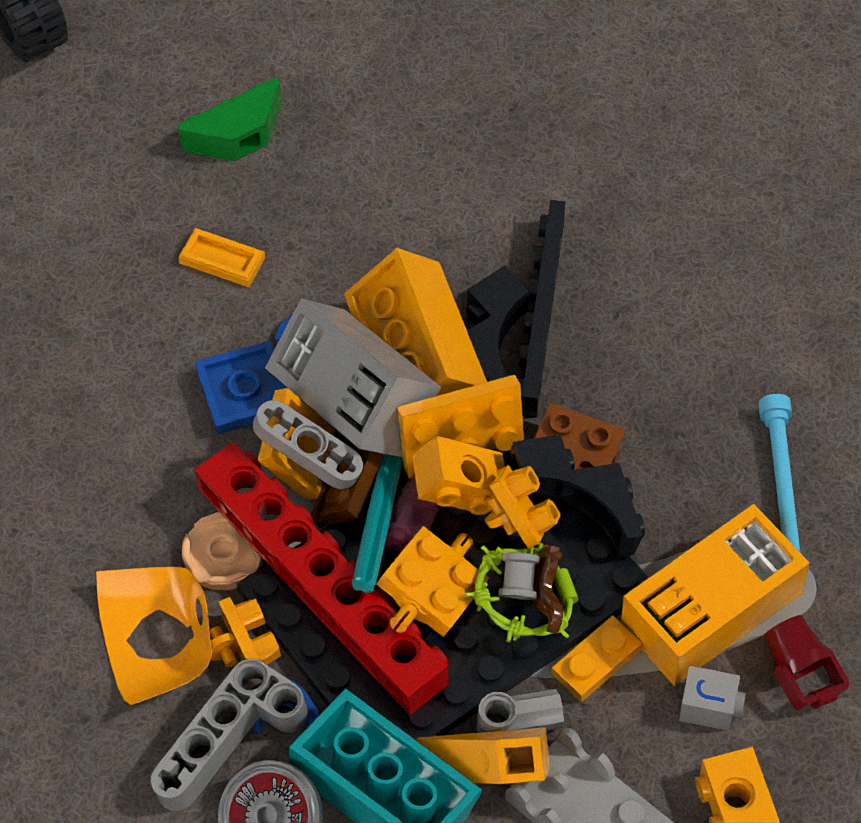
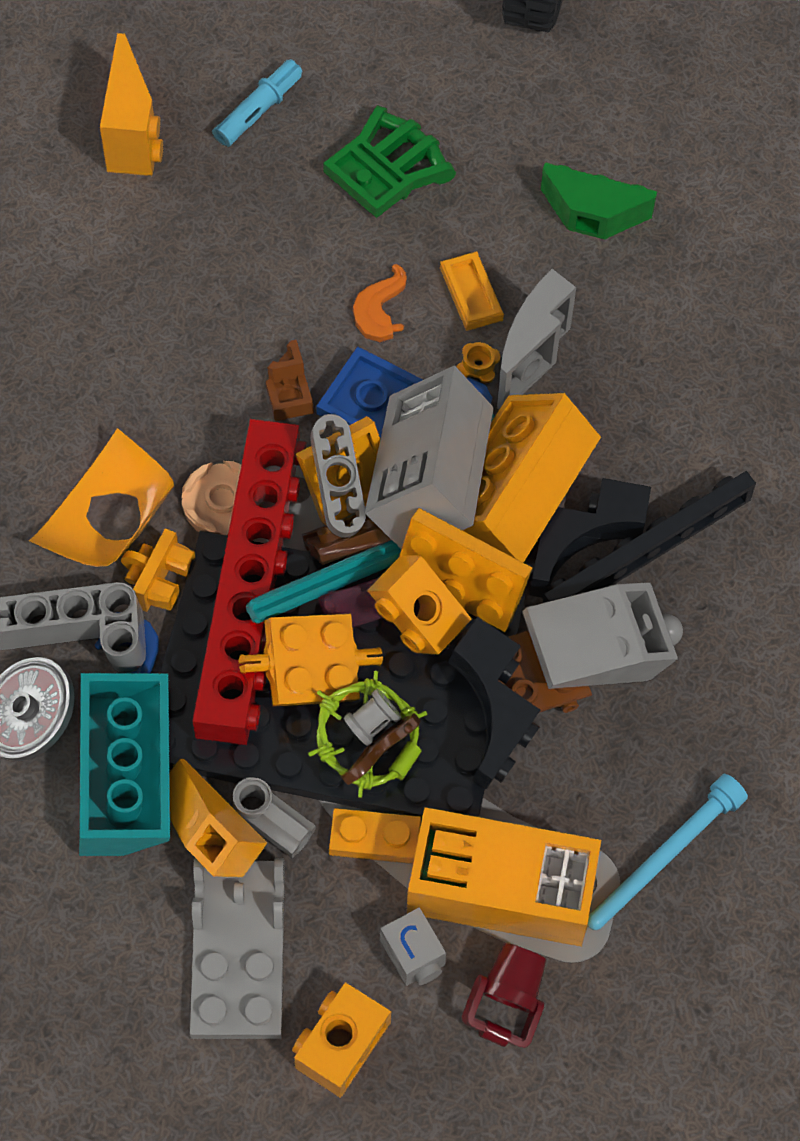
camera: 45 degrees right, 5 degrees up
(59, 244) = (374, 179): none -> green plate
(166, 334) = (368, 310): none -> orange piece
(175, 435) = (288, 385): none -> dark orange slope
(284, 288) = (479, 352): none -> light orange plate
(311, 240) = (535, 335): none -> light grey slope
(514, 508) = (428, 668): light orange hips -> none
(592, 385) = (603, 636): none -> light grey slope

